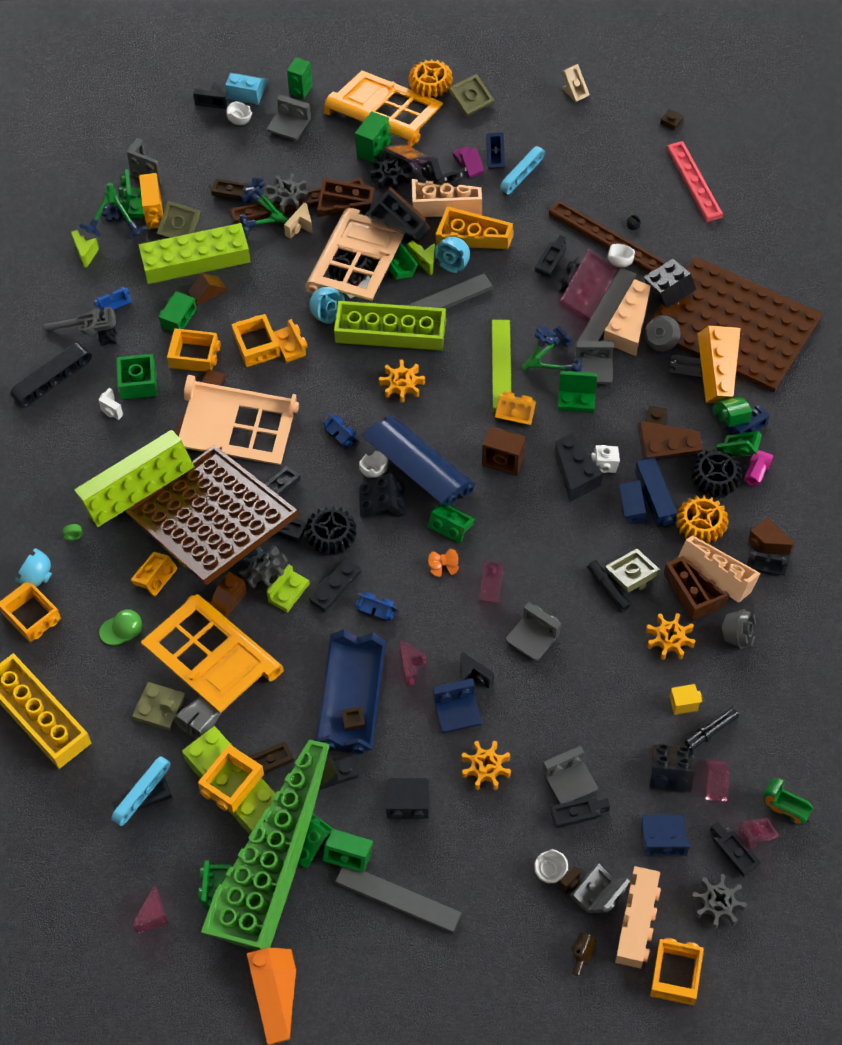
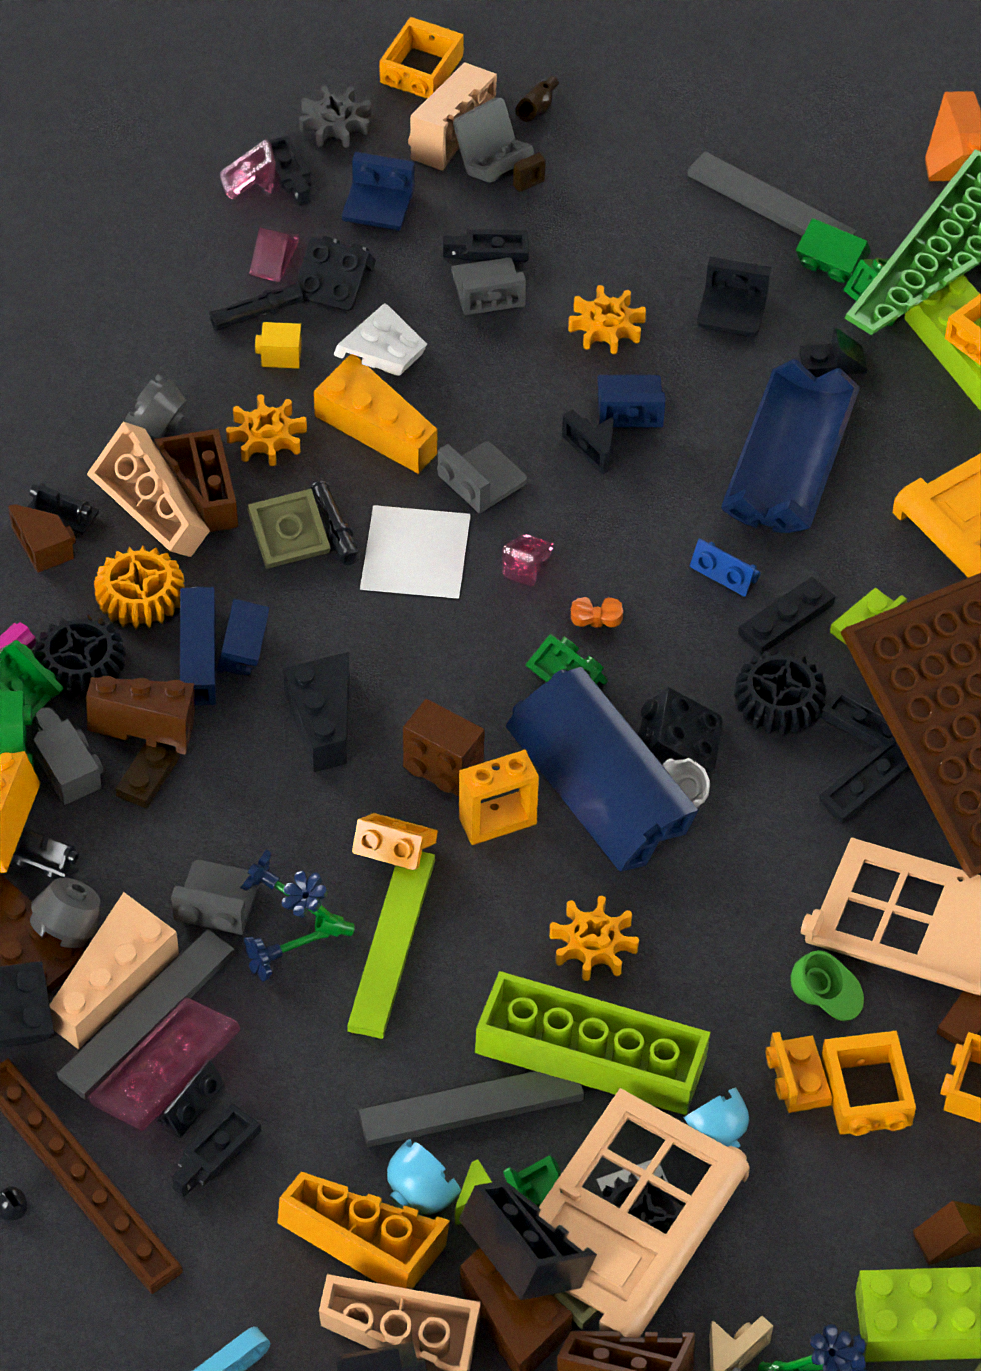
camera: 170 degrees left, 5 degrees down
(274, 757) = (929, 387): dark brown plate -> none
(282, 379) = (827, 983): none -> bright green cap
(334, 425) = (723, 867): blue hinge -> none
(353, 718) = (794, 406): dark brown plate -> none
(411, 658) = (685, 475): clear pink slope -> none
(476, 431) = (504, 813): none -> light orange window
(551, 866) = (550, 189): white hair -> none
(558, 584) = (415, 552): none -> white sticker
(577, 391) = (255, 835): green bracket -> none
(606, 458) = (265, 709): white brick -> none
(609, 658) = (375, 414): none -> light orange wedge
(620, 255) = (76, 1103): white hair -> none
(620, 707) = (383, 342): none -> white wing
(700, 417) = (65, 757): none -> dark grey hinge
(786, 803) = (194, 199): green animal -> none

